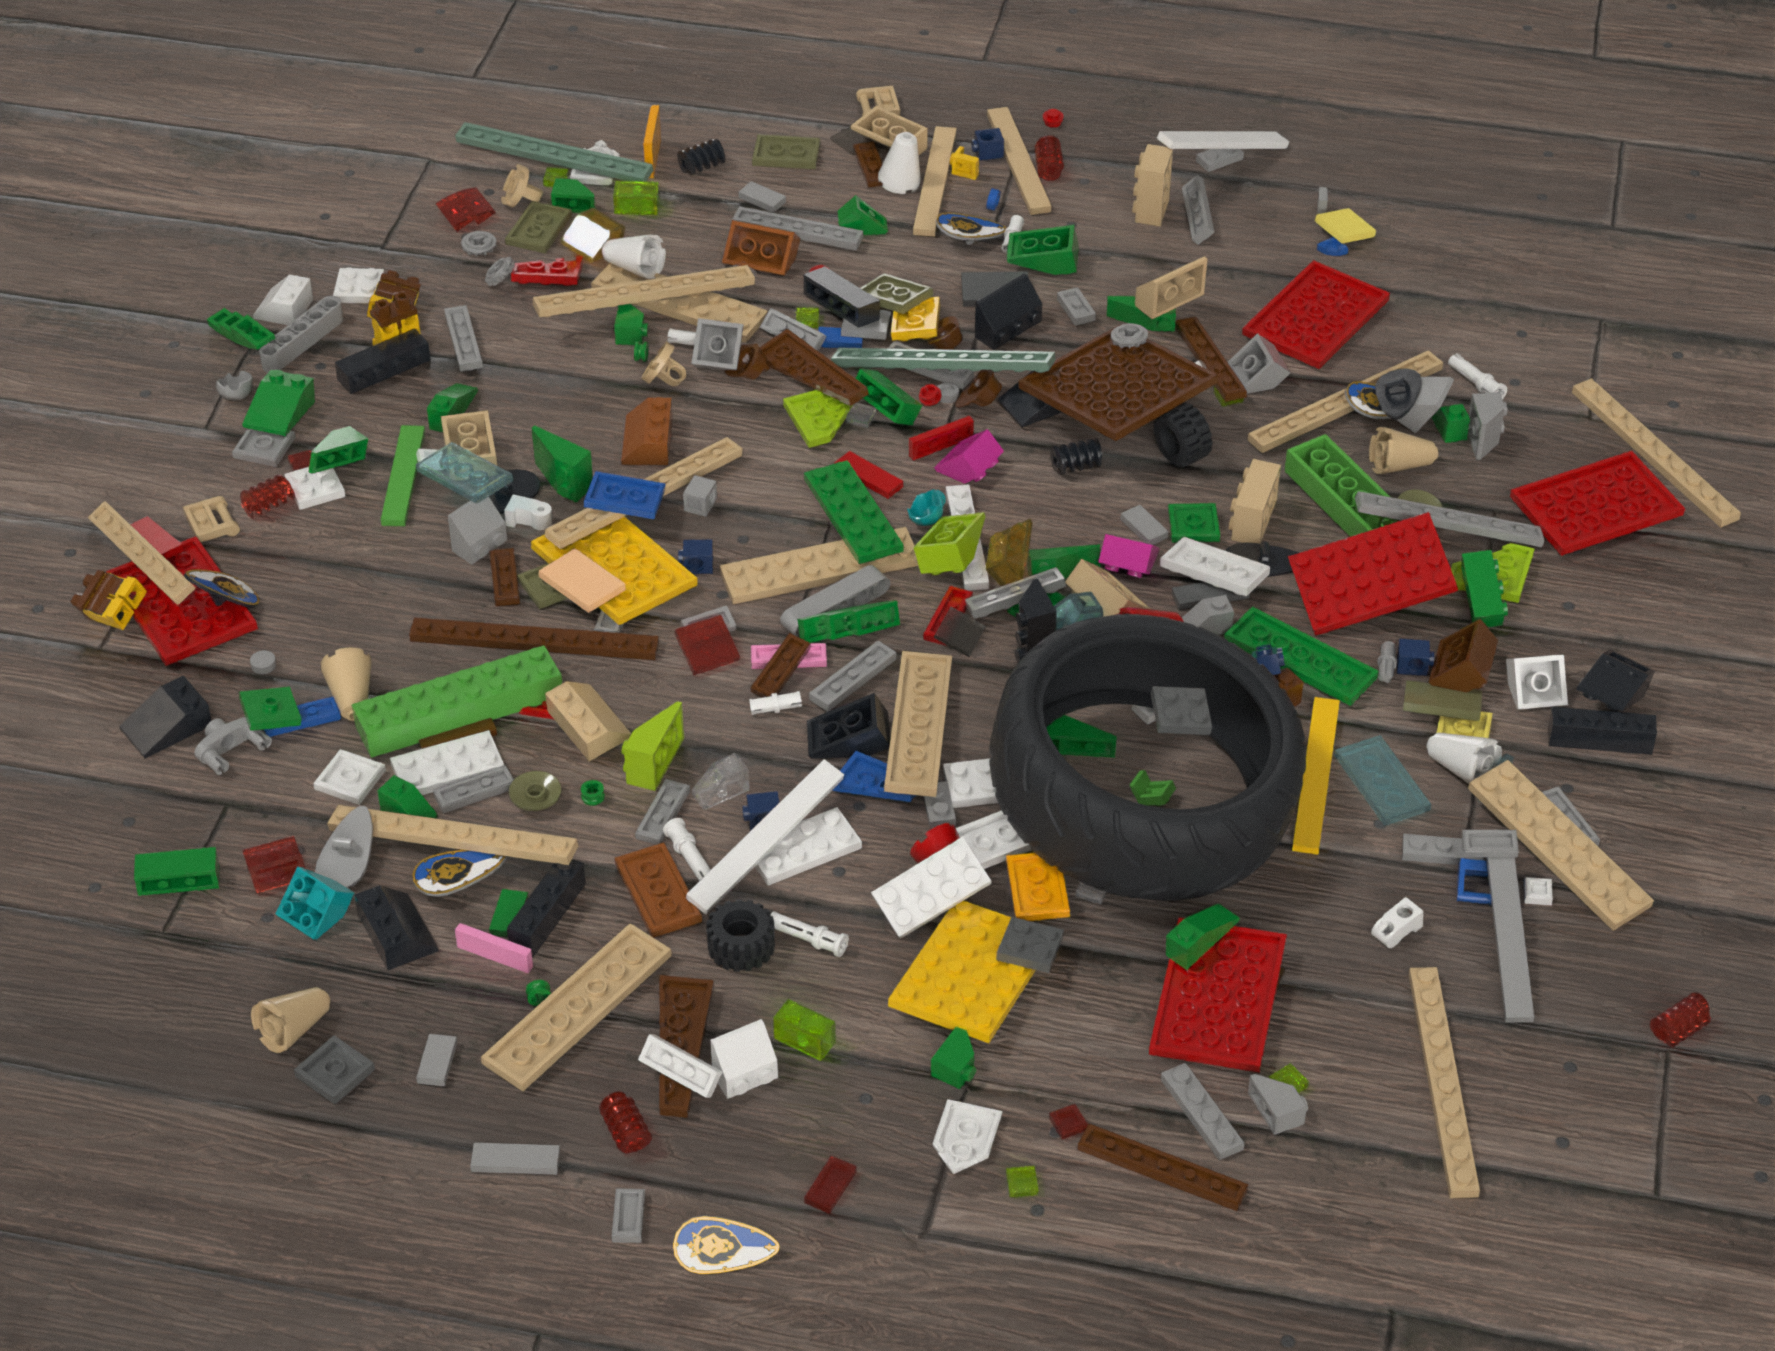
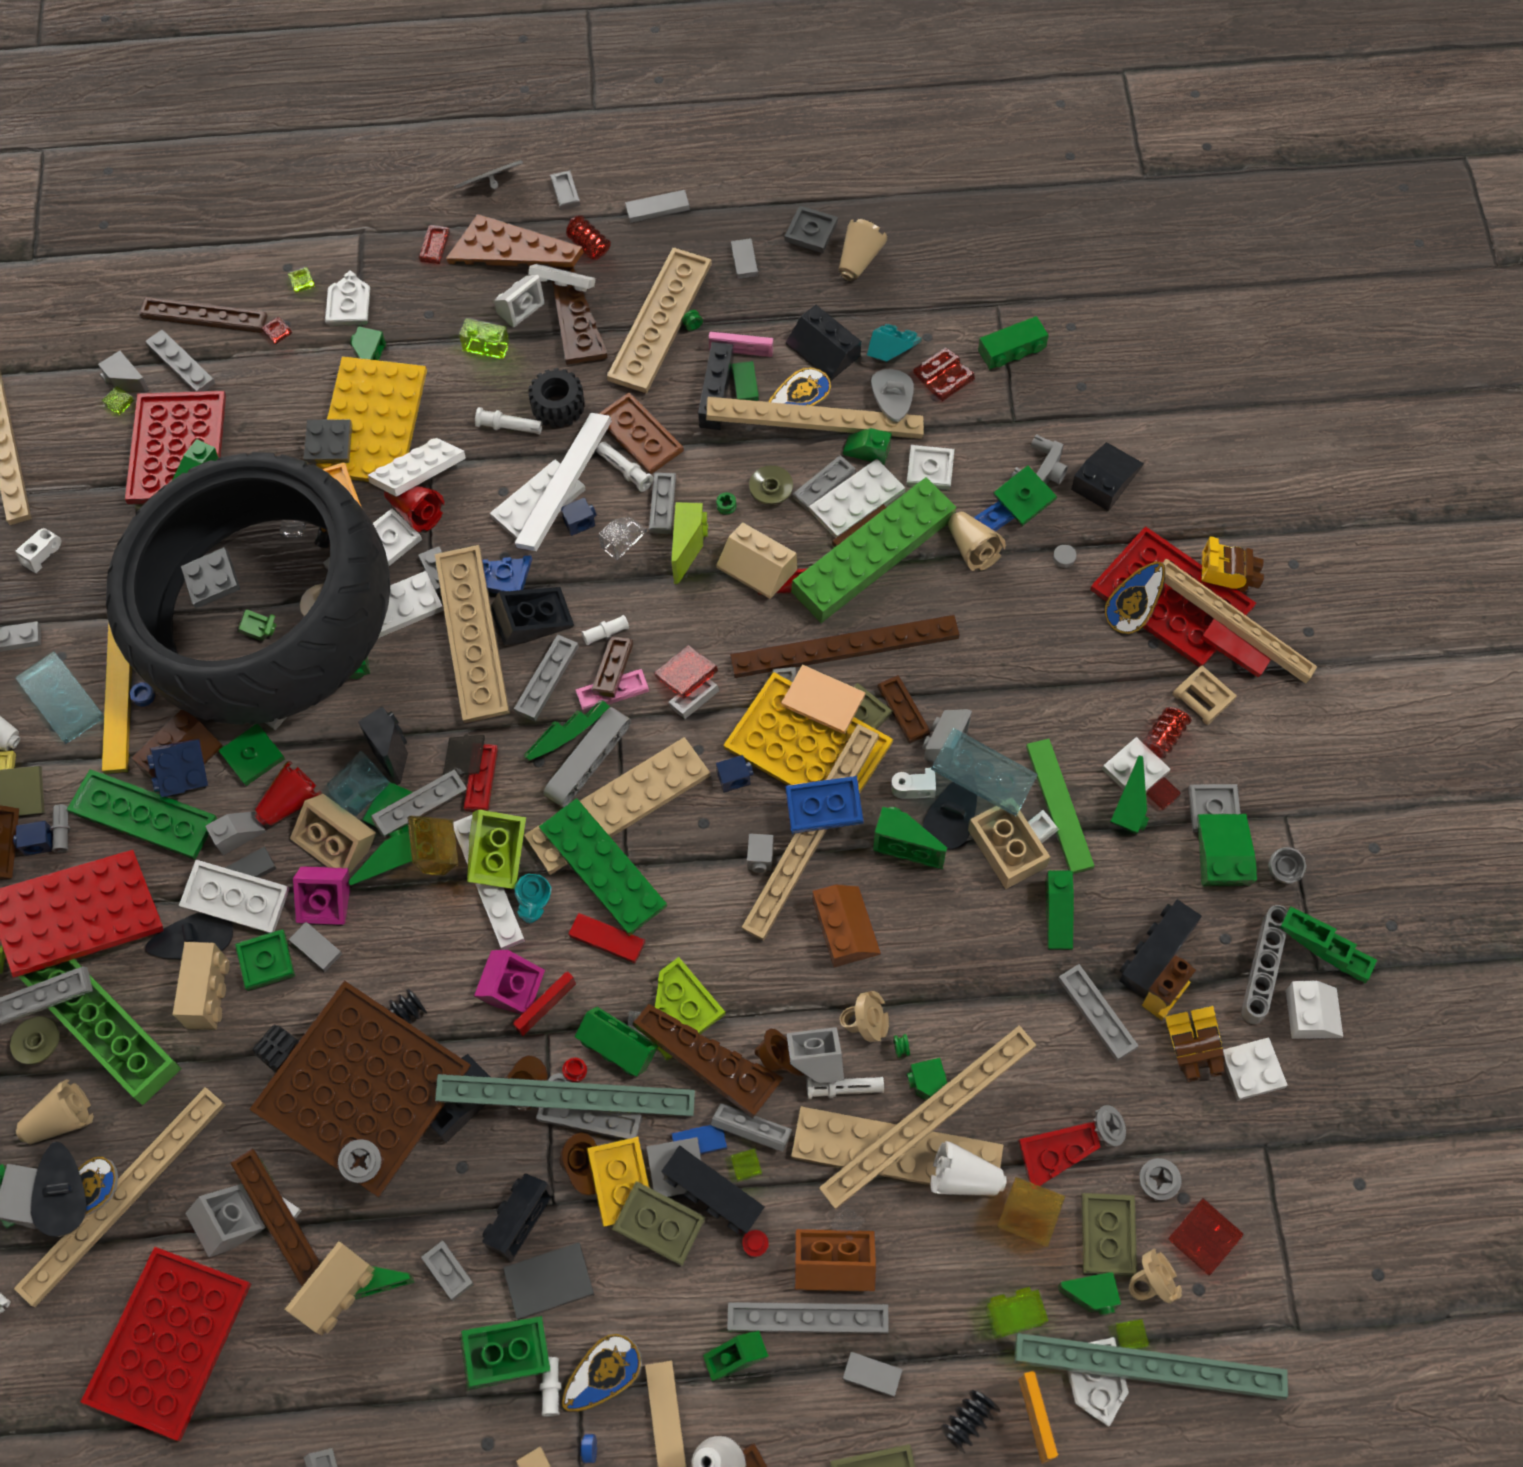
camera: 165 degrees right, 20 degrees up
(741, 1151) = (508, 245): none -> wing

